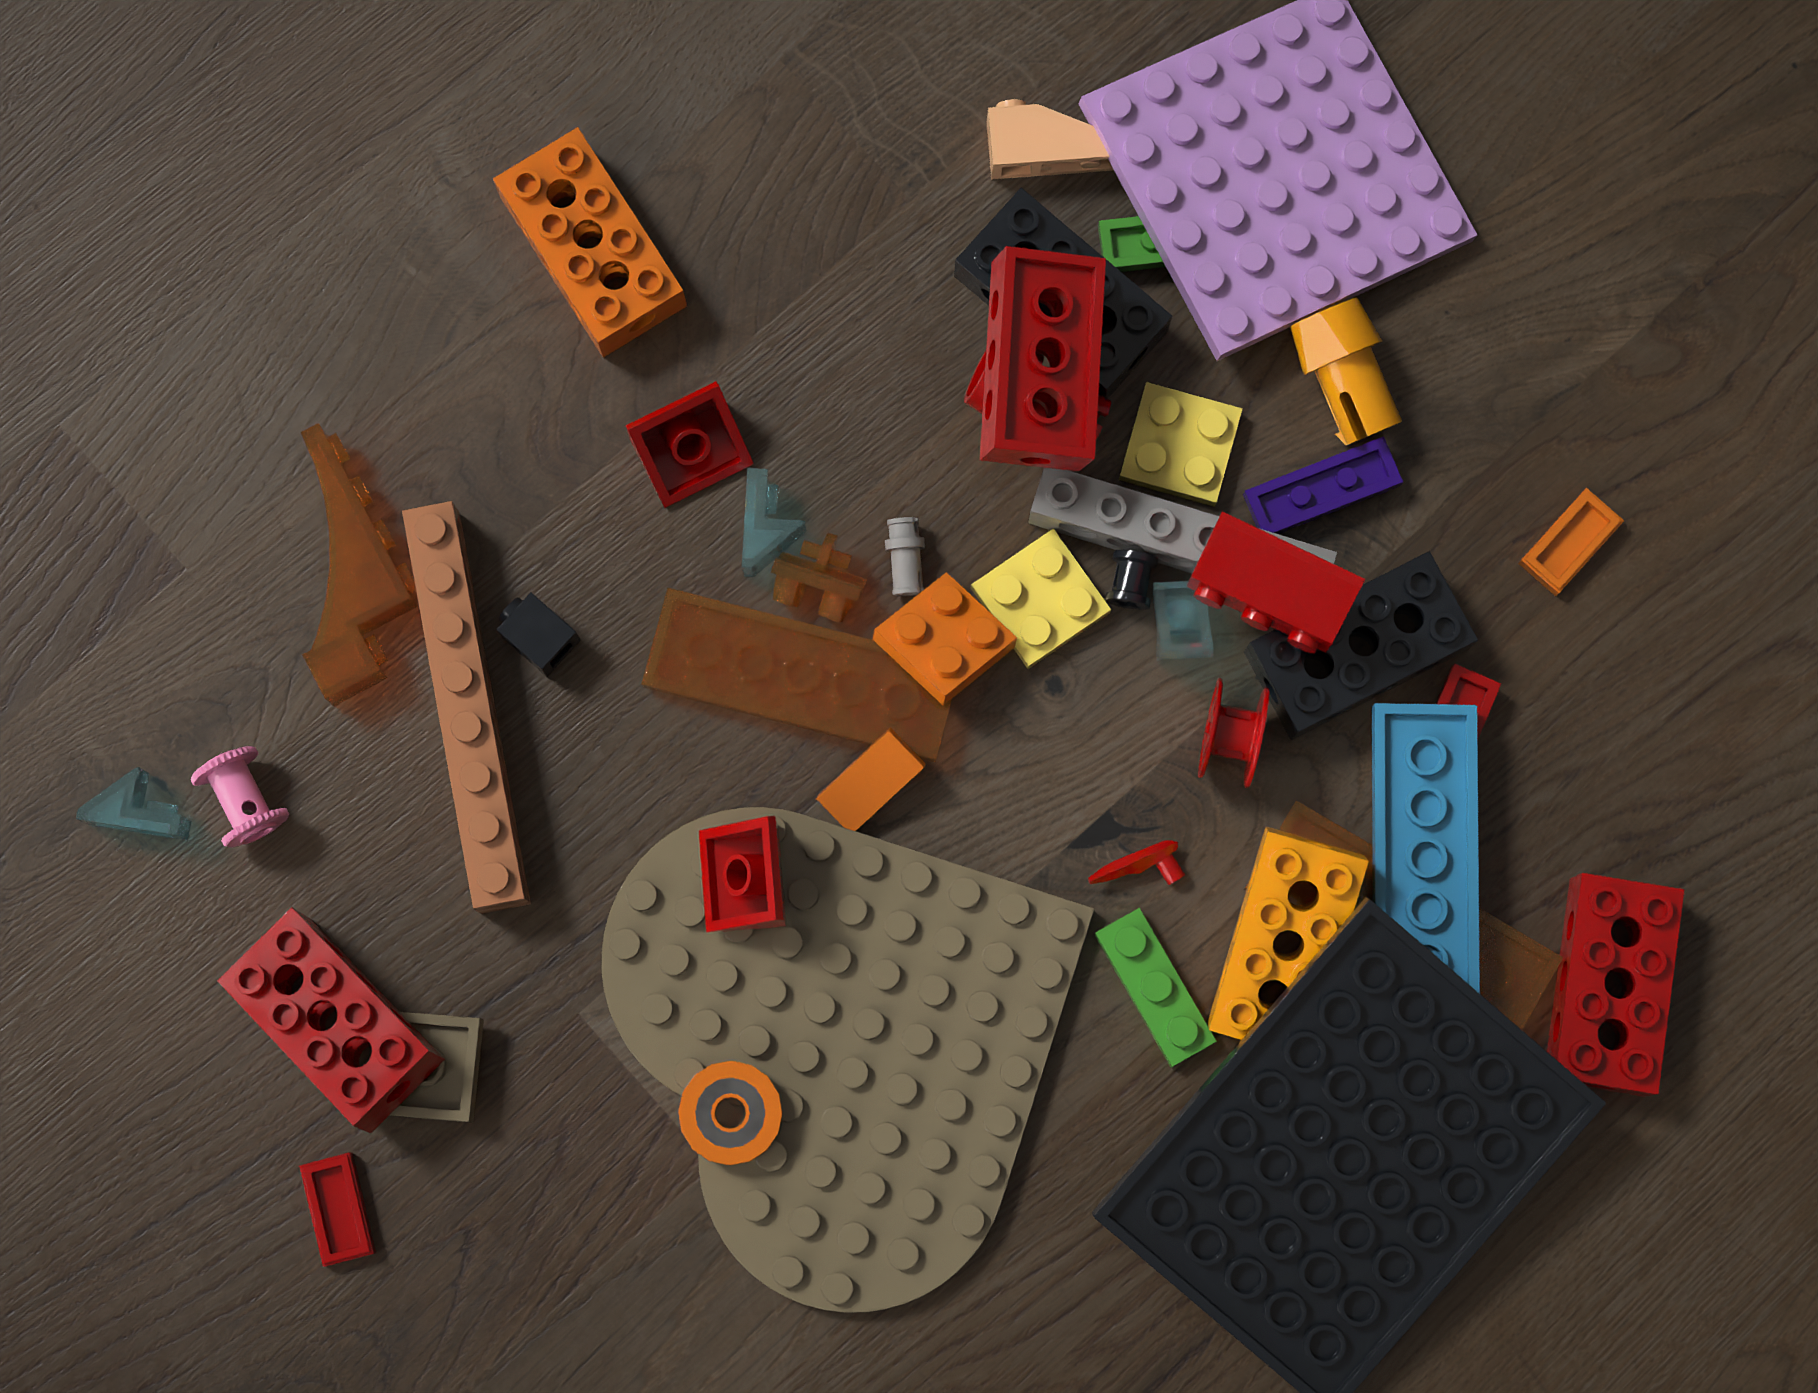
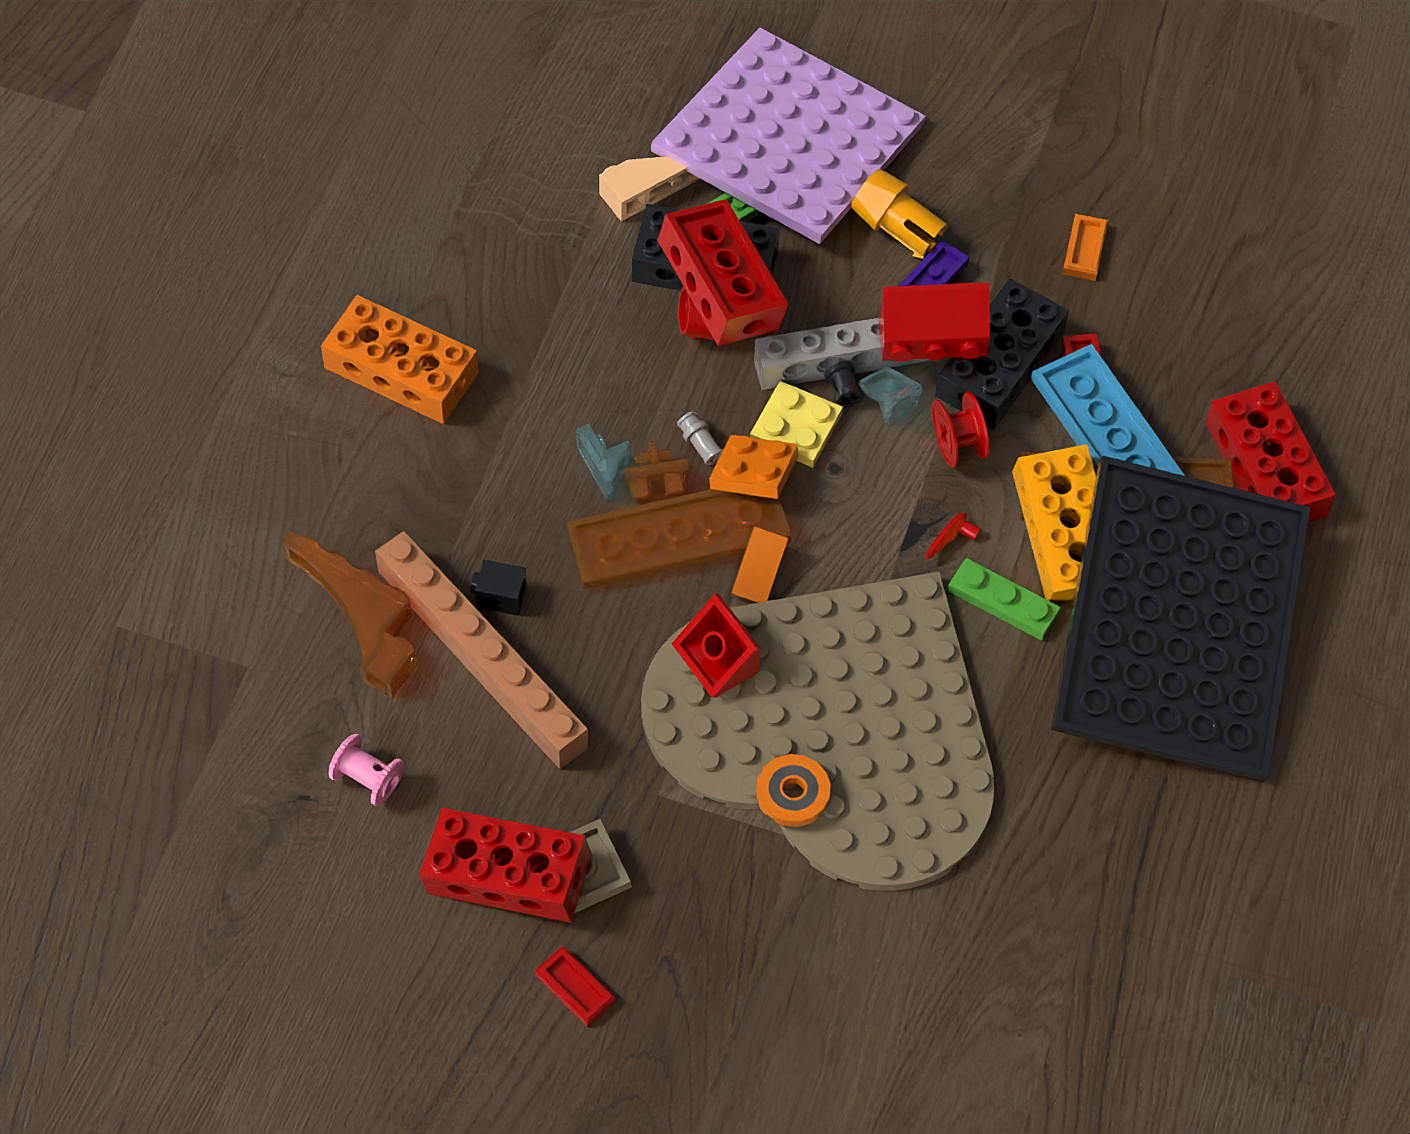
camera: 30 degrees left, 20 degrees down
(122, 809) = (294, 821): clear light blue slope -> none
(689, 444) = (528, 438): red slope -> none
(1180, 444) = (824, 299): light yellow plate -> none

